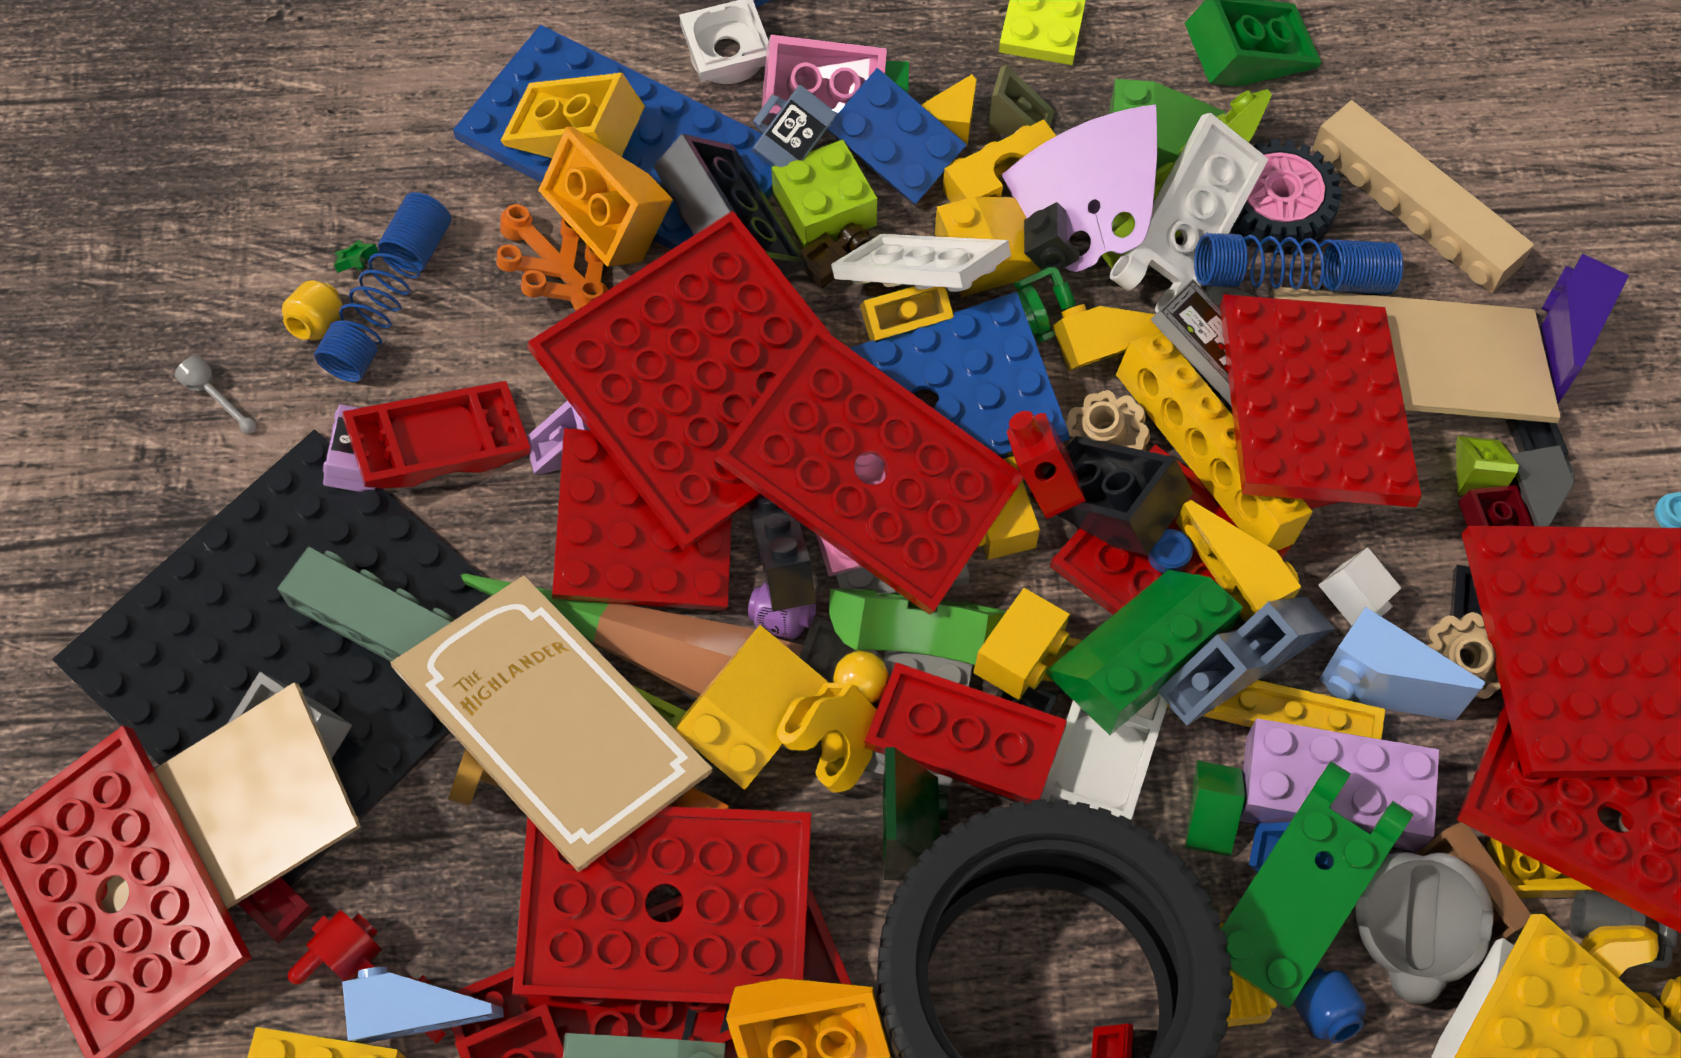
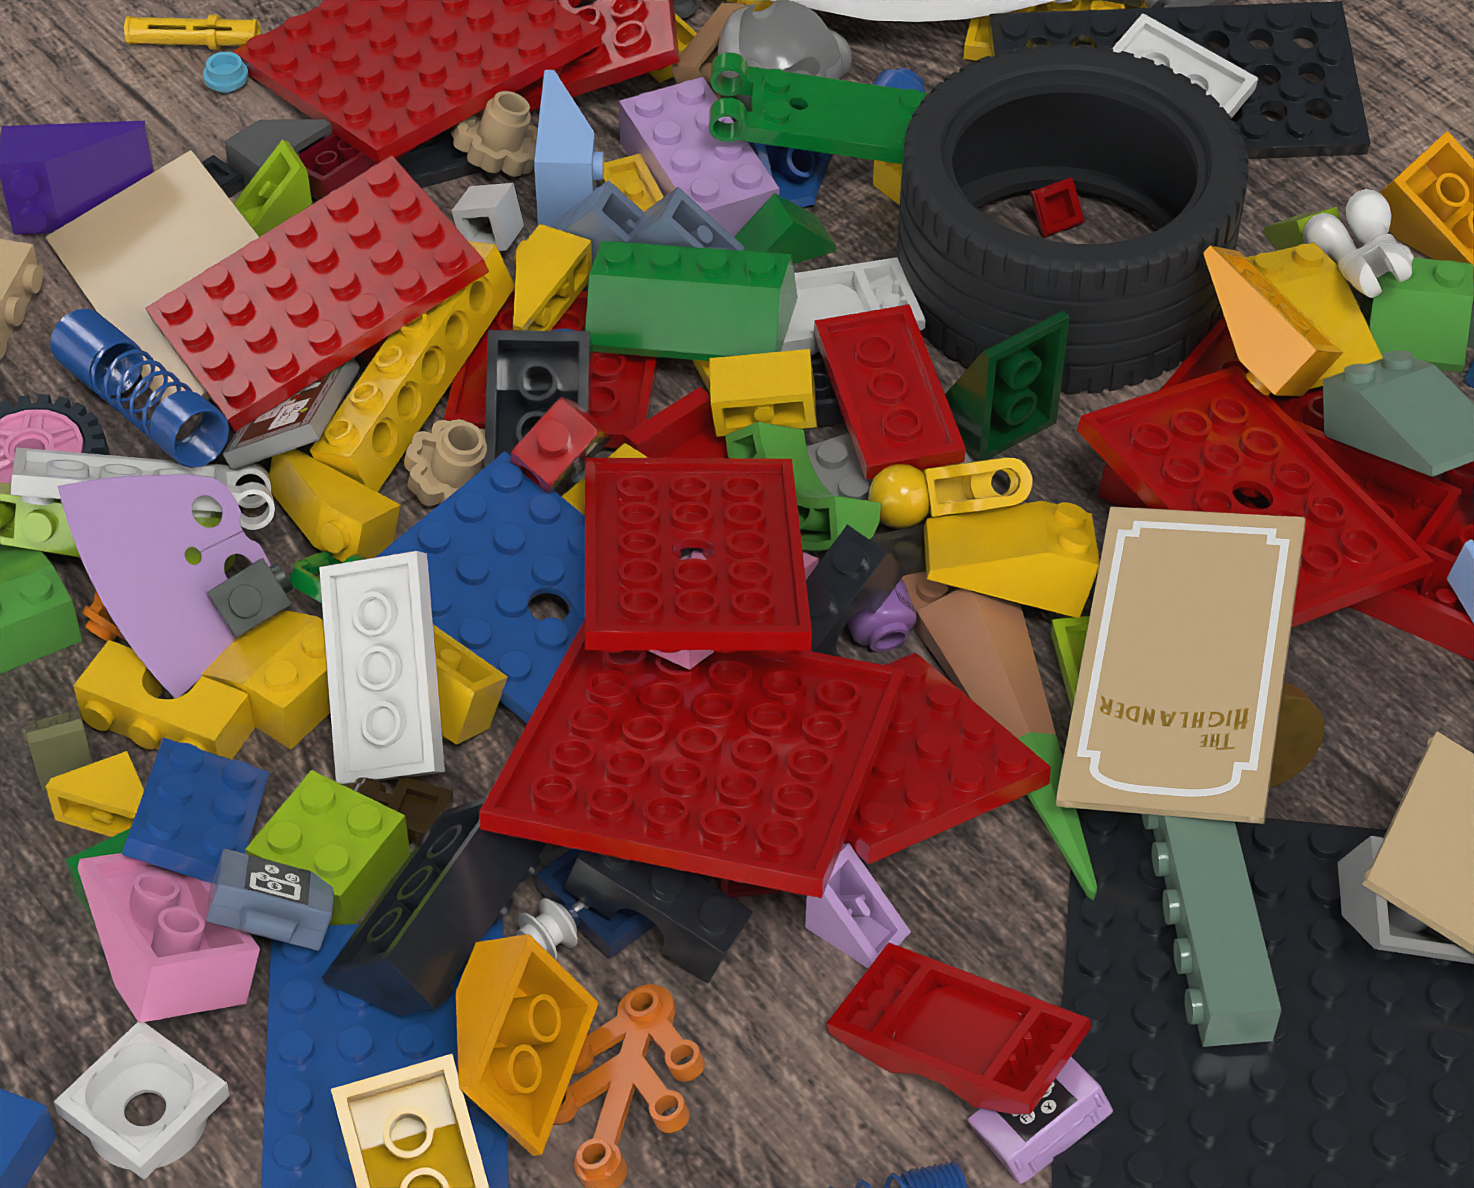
camera: 125 degrees left, 15 degrees down
(1029, 570) = (680, 431): none -> red panel

